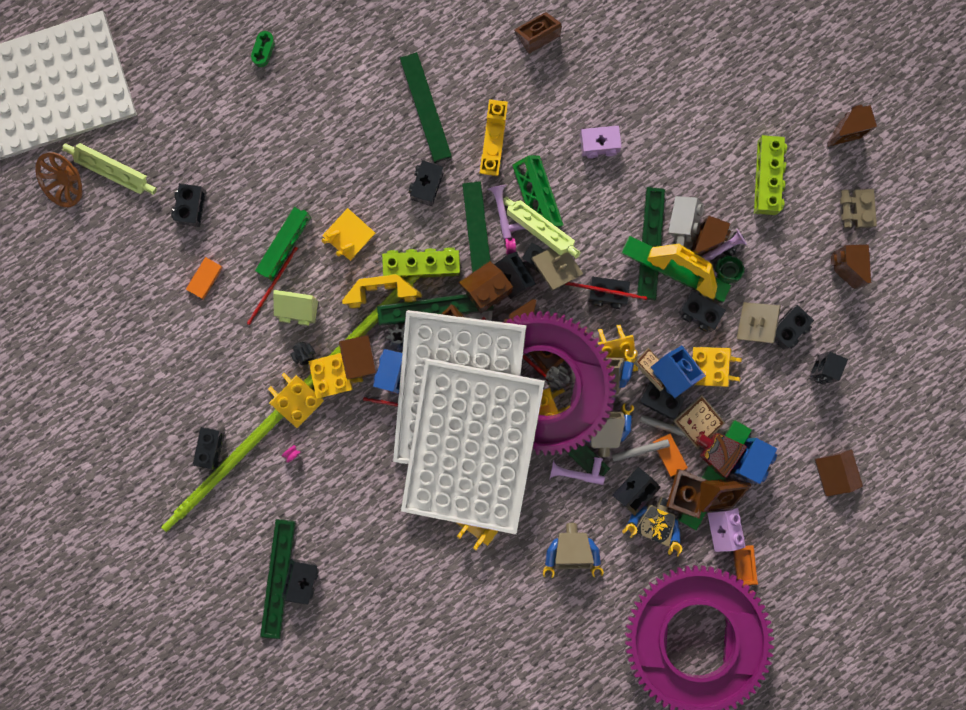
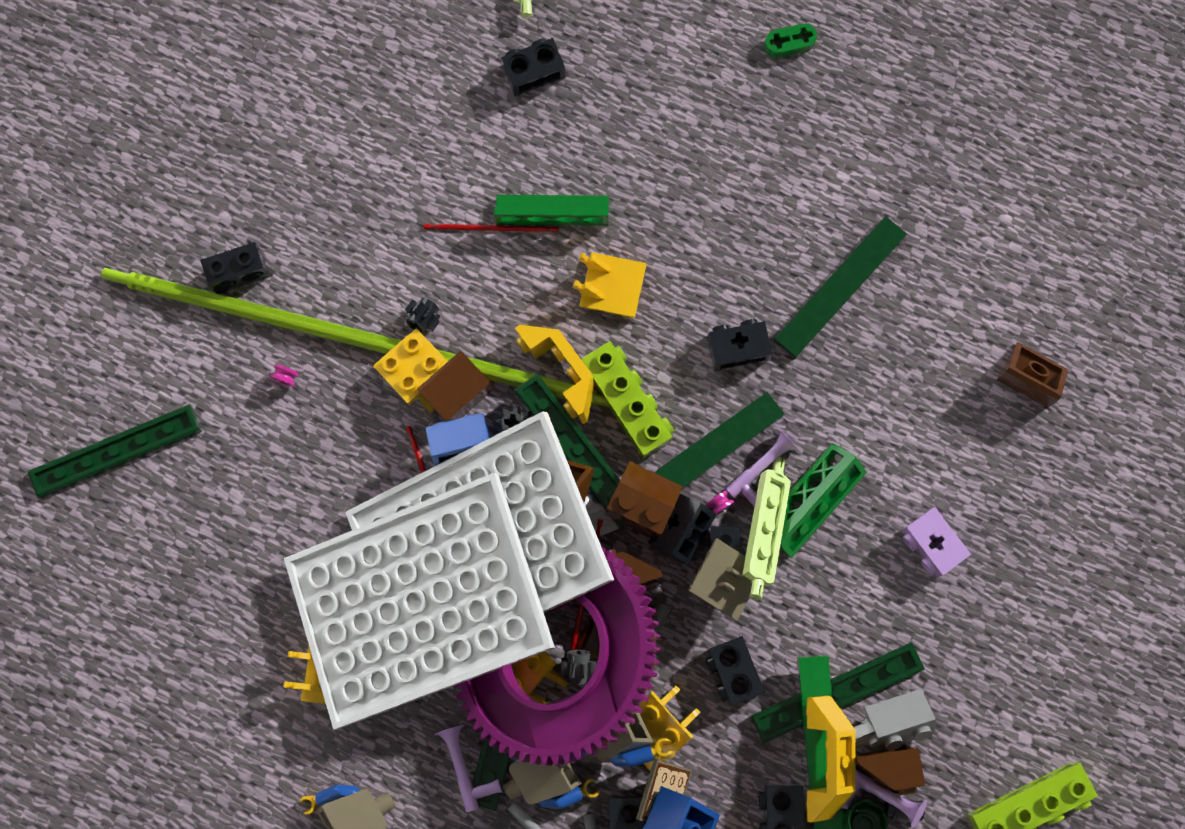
camera: 65 degrees right, 5 degrees down
(204, 278) = (451, 139): orange tile -> none
(295, 307) = (476, 271): yellowish green slope -> none
(295, 401) = (355, 341): yellow plate -> none
(297, 572) = (136, 469): black brick -> none
(493, 137) = (852, 399): yellow slope -> none
(606, 290) = (733, 666): red piece -> none

